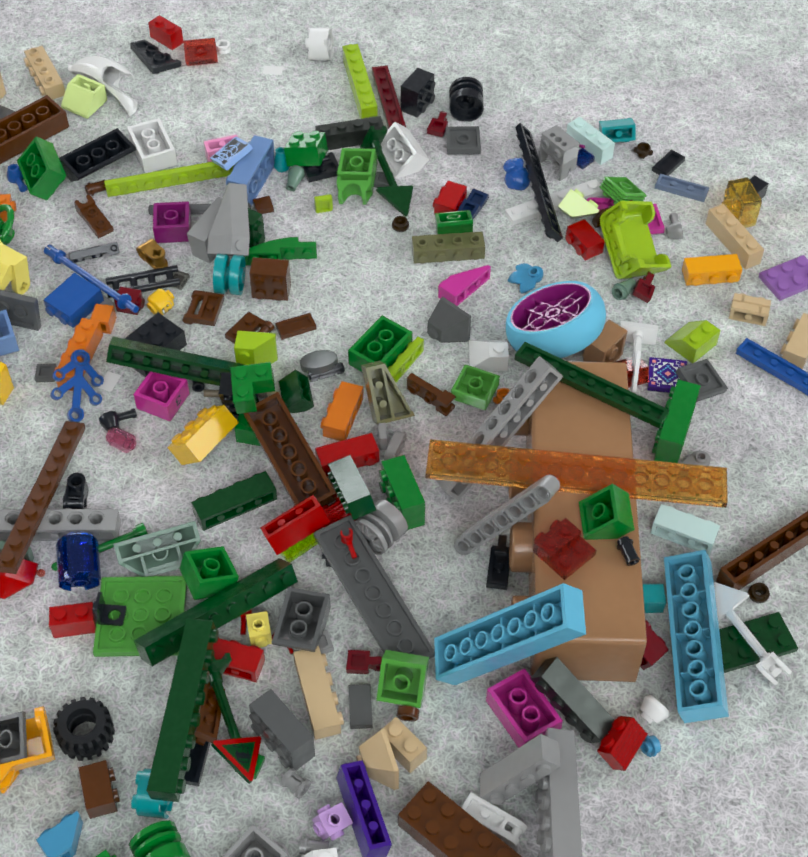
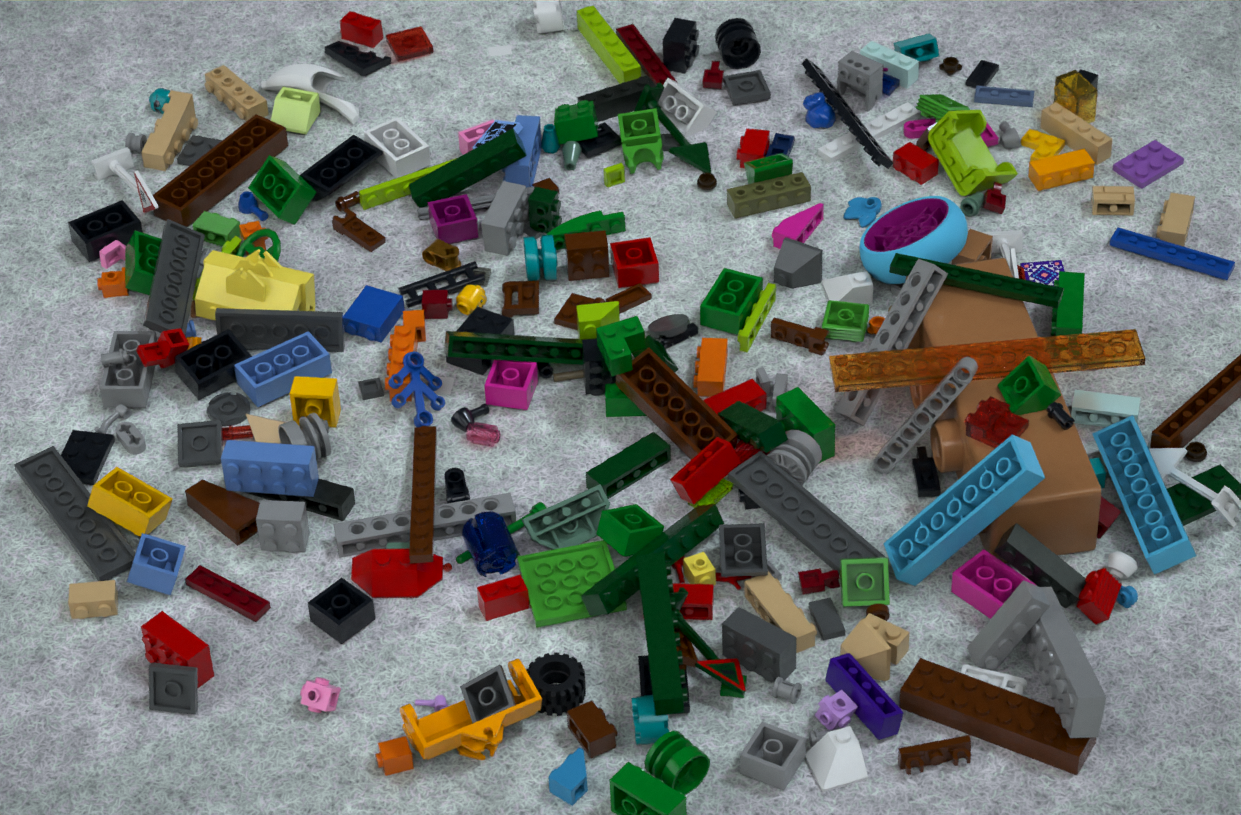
camera: 10 degrees left, 10 degrees down
(59, 257) = (337, 276): blue bar -> none
(95, 252) = (376, 264): hinge -> none
(102, 611) = (535, 581): black bracket -> none
(197, 178) = (468, 169): none -> dark green brick
(202, 434) = (573, 410): yellow brick -> none
(223, 46) = (433, 34): white bush -> none
(231, 223) = (530, 205): light grey wedge -> none
(309, 293) = (634, 262): none -> red brick
(348, 540) = (766, 472): red hand -> none
(384, 396) = (753, 339): olive wedge -> none
(576, 206) = (899, 130): yellowish green slope -> none
(694, 339) = (1063, 238): lime slope -> none
(703, 374) = (1094, 275): dark grey plate -> none
(704, 241) = (1042, 143): none -> yellow plate

